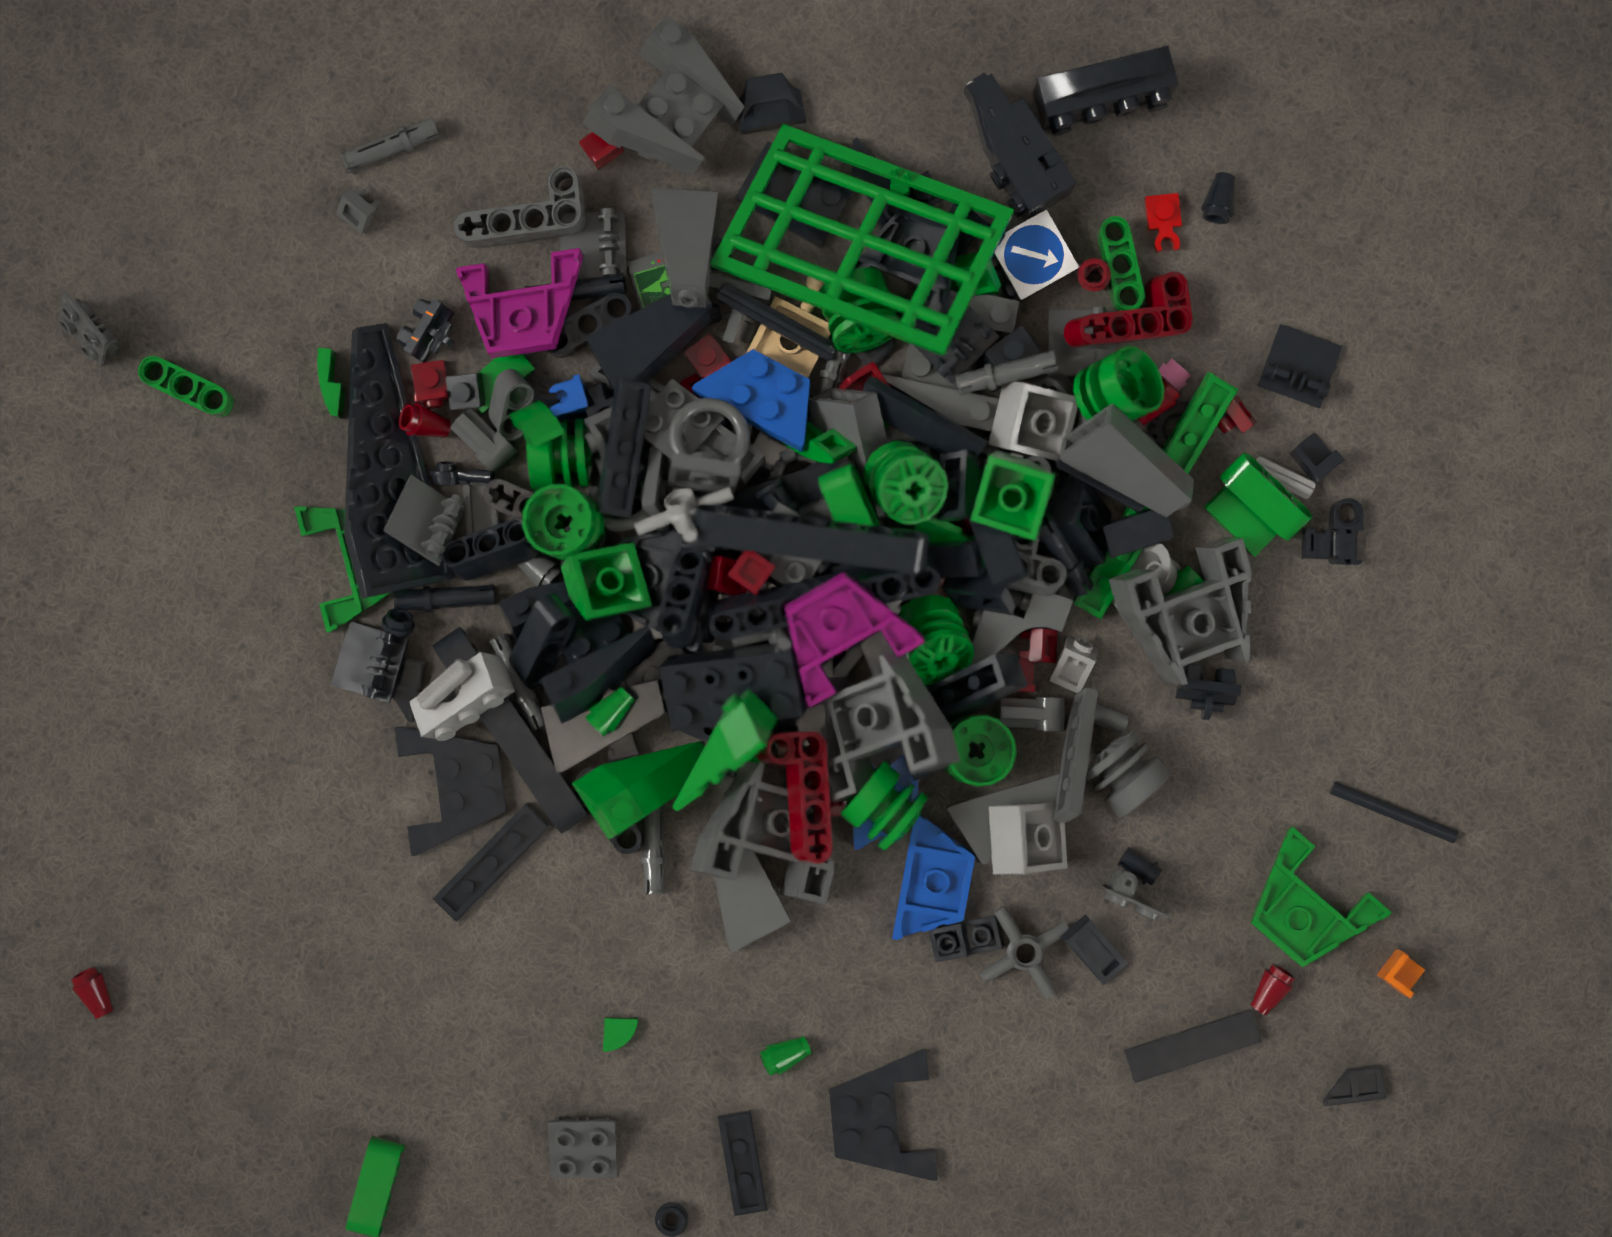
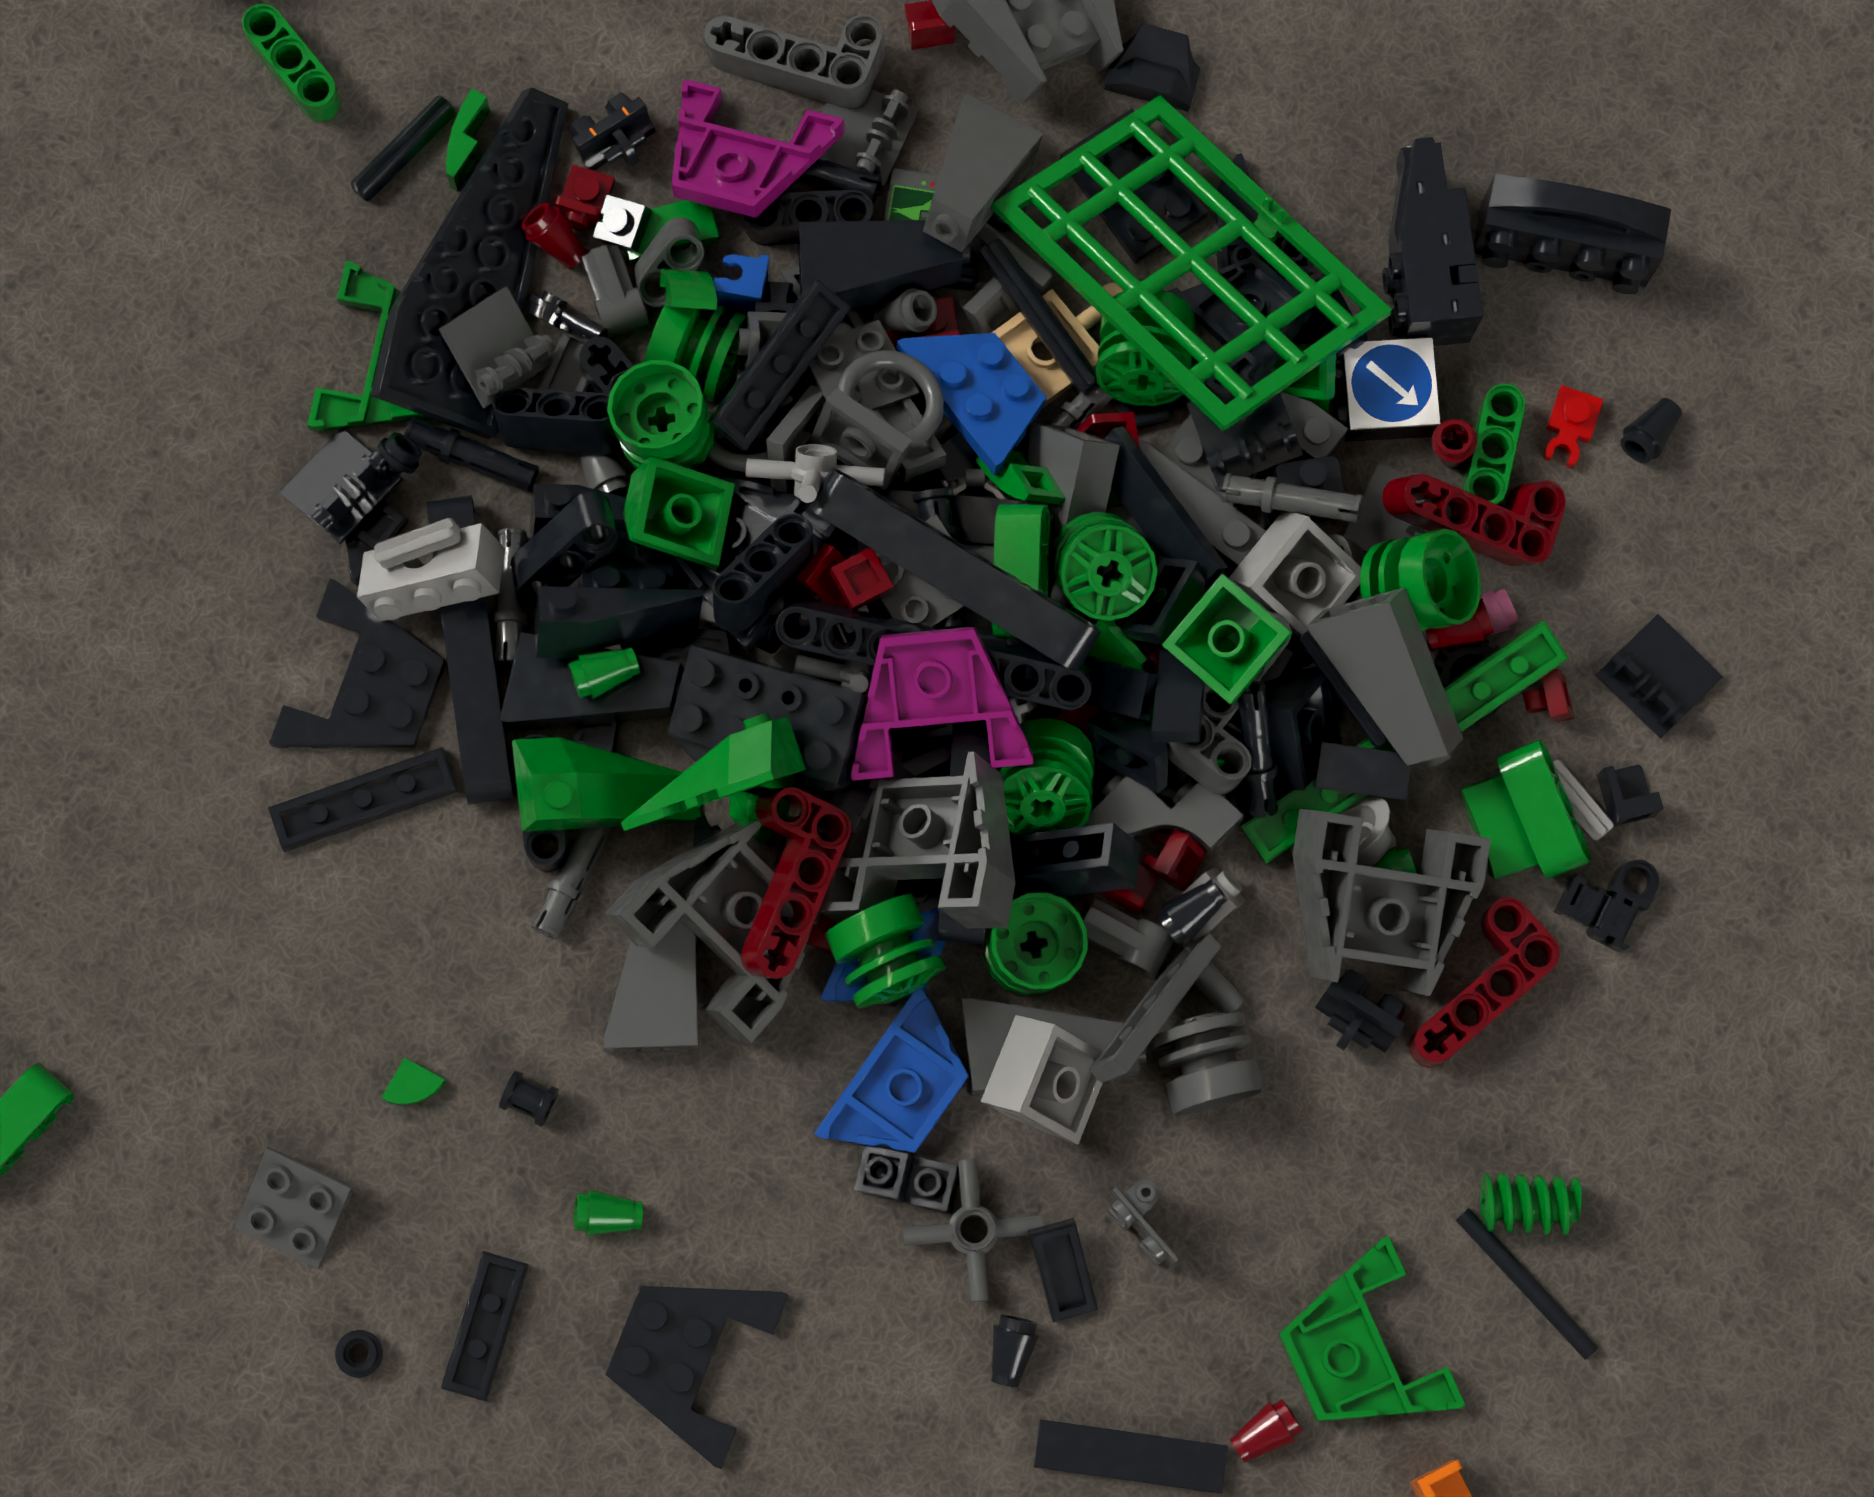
camera: 20 degrees right, 10 degrees down
(291, 408) = (403, 148): none -> black axle
(687, 362) = (908, 312): none -> dark grey cone
(697, 1005) = (528, 1098): none -> black bush
(1068, 678) = (1191, 911): none -> black cone
(1085, 1014) = (1012, 1348): none -> black cone
(1140, 866) = (1172, 1195): black pin -> none
(1277, 637) = (1479, 993): none -> dark red beam
(1374, 761) = (1530, 1203): none -> green piece

